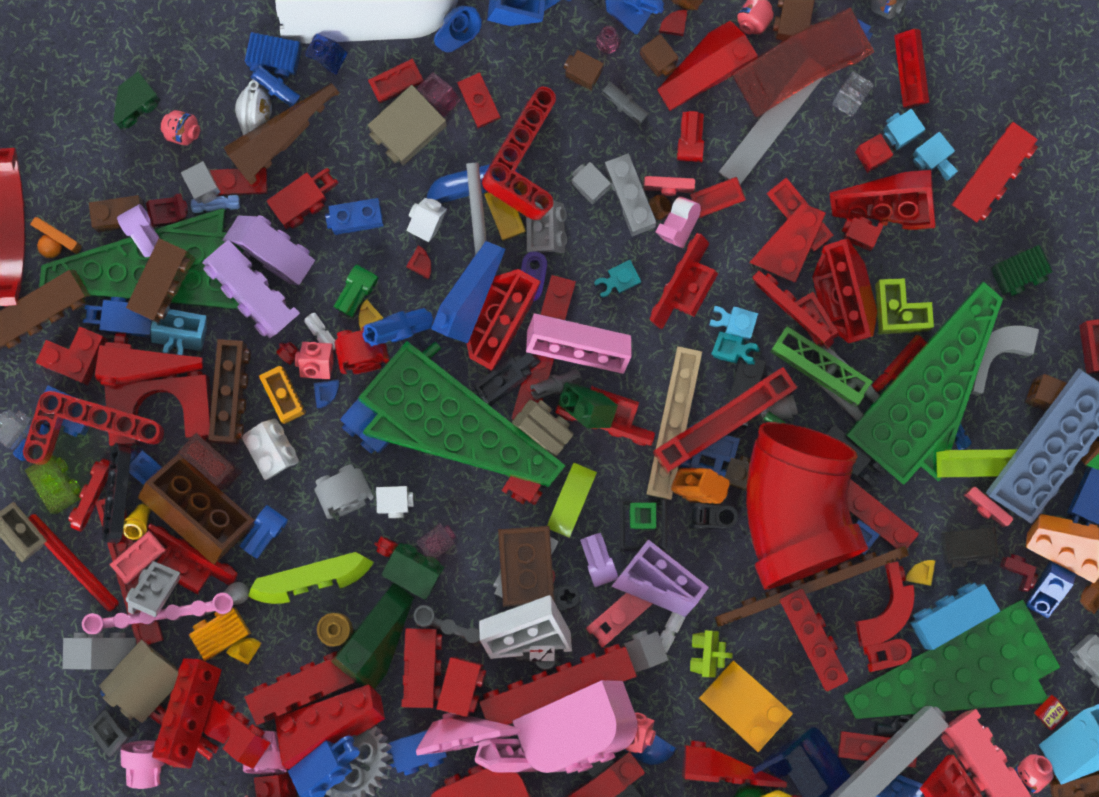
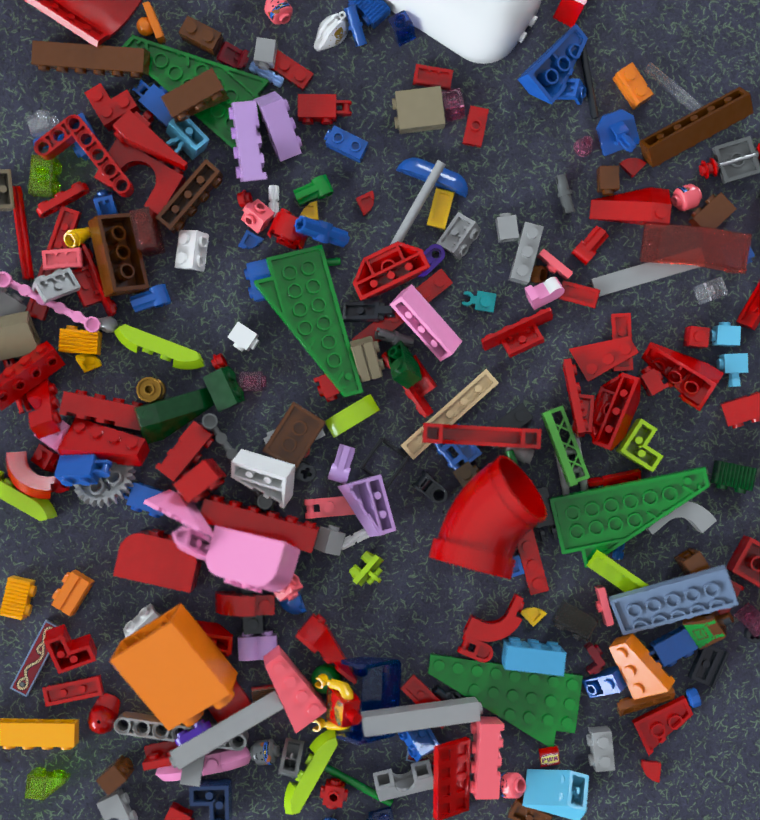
camera: 35 degrees right, 5 degrees up
(116, 493) = (76, 209): black beam -> none
(138, 226) = (207, 50): lavender piece -> none
(276, 135) = (329, 56): reddish brown wedge -> none
(282, 394) = (221, 222): light orange brick -> none
(343, 491) = (216, 309): light grey brick -> none
(426, 218) = (388, 177): white brick -> none
(450, 34) = (487, 72): blue cap -> none
(465, 300) = (375, 245): blue wedge -> none
(515, 151) = (474, 173): red beam -> none
(542, 653) = (264, 496): white sticker -> none
(583, 69) = (554, 153): reddish brown brick -> none
(642, 516) = (388, 457): green brick -> none
(700, 485) = (436, 464): orange brick -> none
(731, 347) = (518, 393): teal plate -> none
(738, 323) = (534, 381): medium azure brick -> none
(745, 706) = (366, 617): light orange slope -> none
(816, 644) = (437, 608): red bracket -> none
(820, 581) = (468, 575): reddish brown plate -> none

